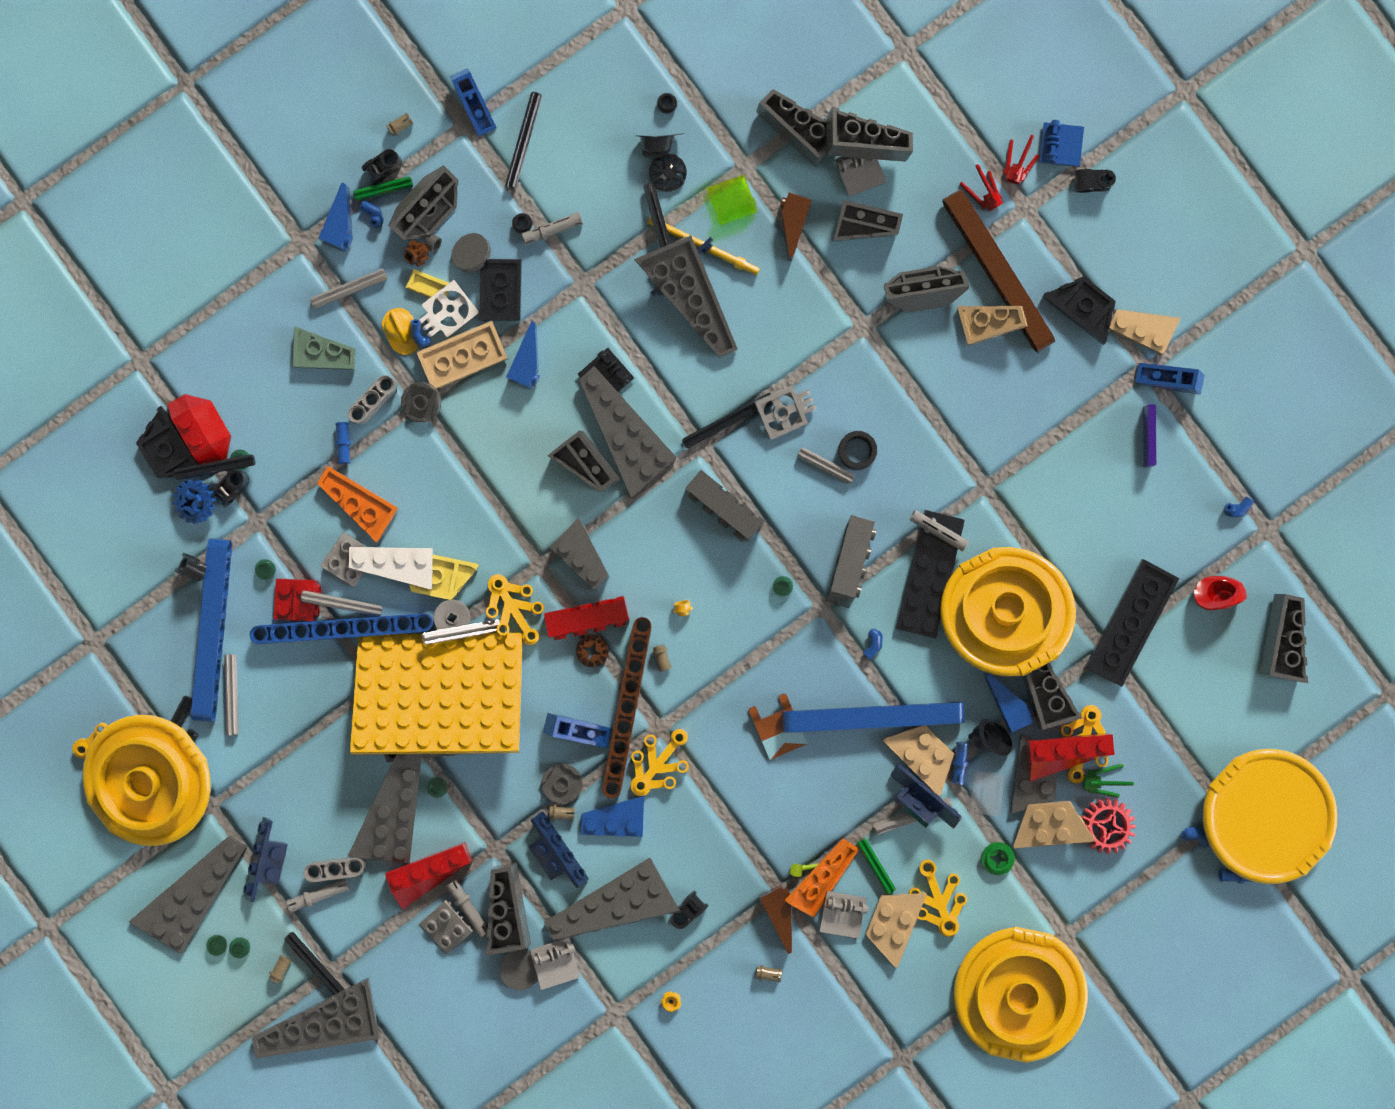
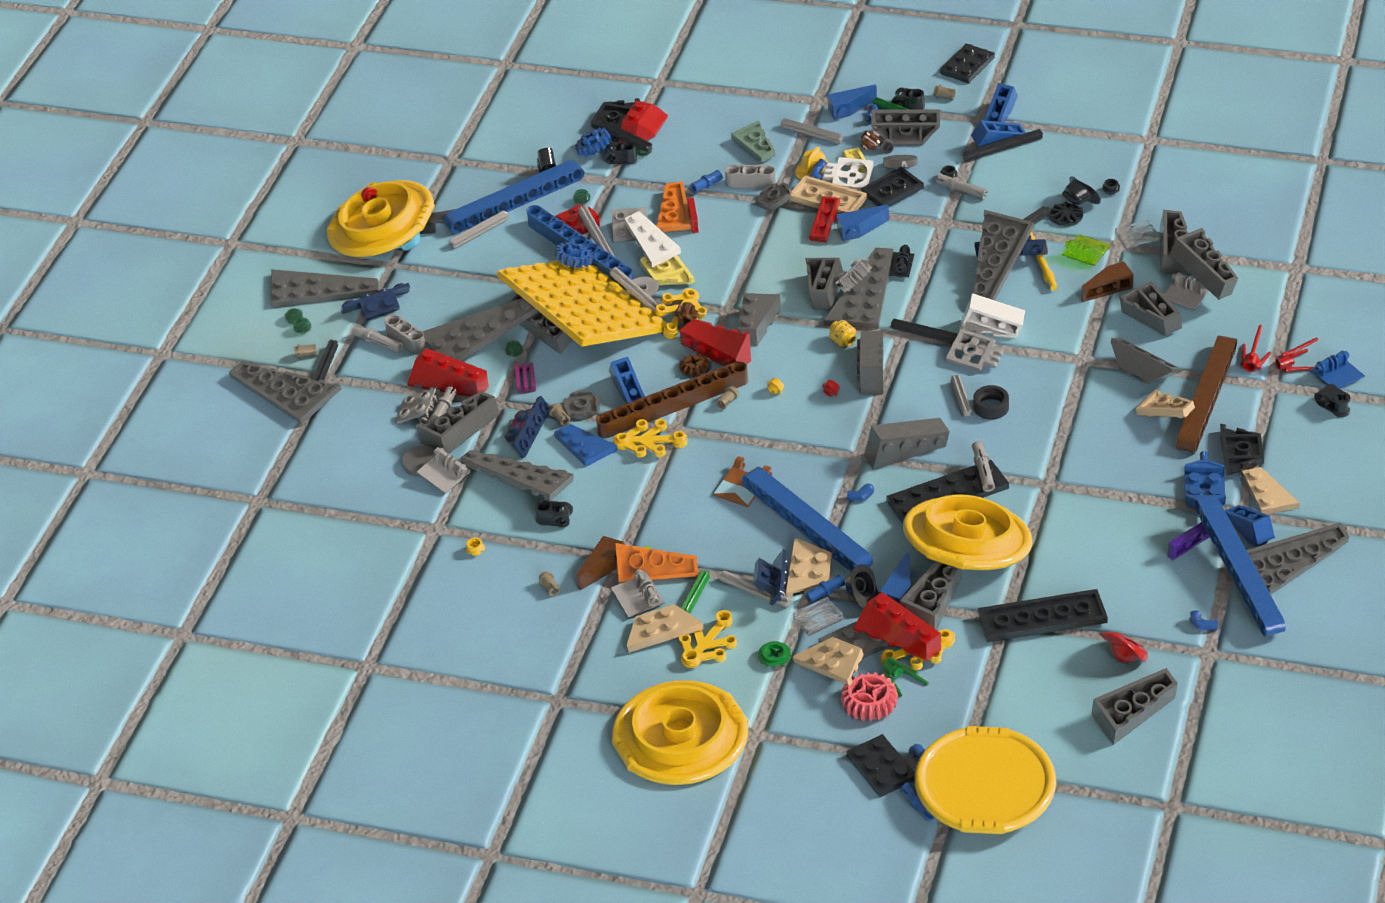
camera: 55 degrees right, 45 degrees down
(111, 775) = (368, 194): none -> red plate
(360, 652) = (573, 254): none -> blue gear
(370, 63) = (967, 63): none -> black plate
(385, 495) = (693, 215): none -> red tile
(468, 795) = (524, 368): none -> magenta tile
(495, 386) = (824, 219): none -> red tile
(508, 133) = (992, 131): none -> blue slope
(529, 613) = (686, 313): none -> reddish brown gear
(606, 433) = (858, 265): none -> light grey hinge
(666, 499) = (842, 333): none -> yellow head
(725, 564) = (830, 388): none -> red plate
(751, 141) = (1137, 234): none -> clear plate
(759, 362) = (992, 317): none -> white wedge
(782, 586) = (849, 424): clear green plate -> none
(1116, 377) = (1204, 475): none -> blue plate
(1178, 870) = (881, 765): none -> black plate
(1219, 435) = (1239, 565): none -> blue beam
(1230, 394) = (1290, 557): none -> dark grey wing

